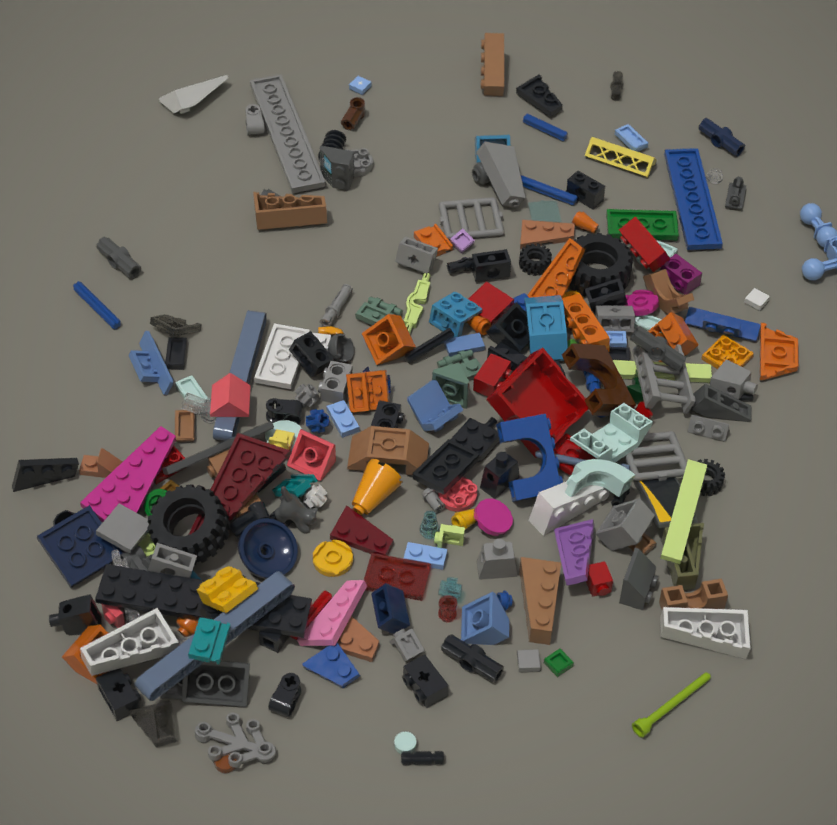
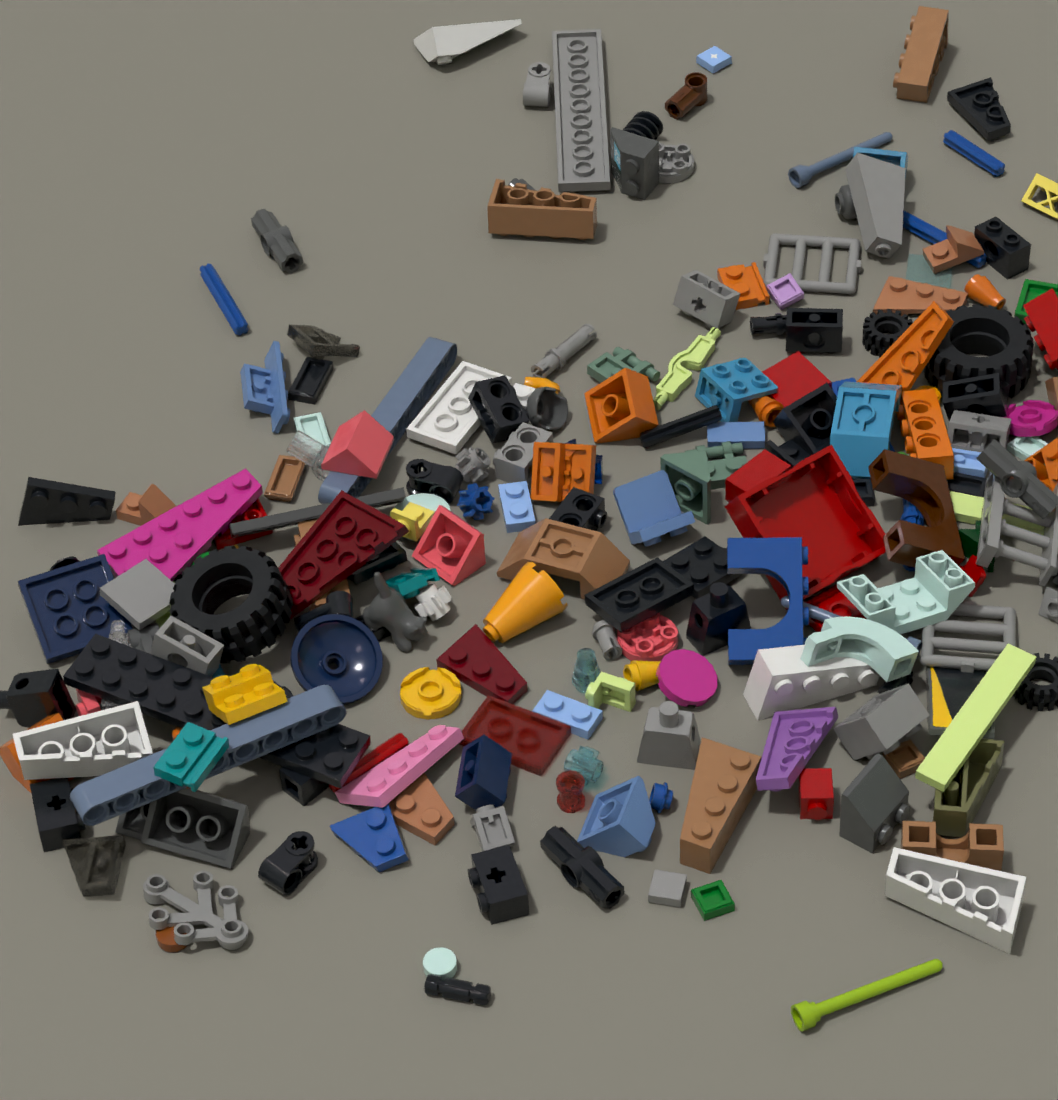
camera: 20 degrees right, 5 degrees down
(444, 157) = (802, 174): none -> sand blue piece
(556, 197) = (956, 249): none -> nougat slope

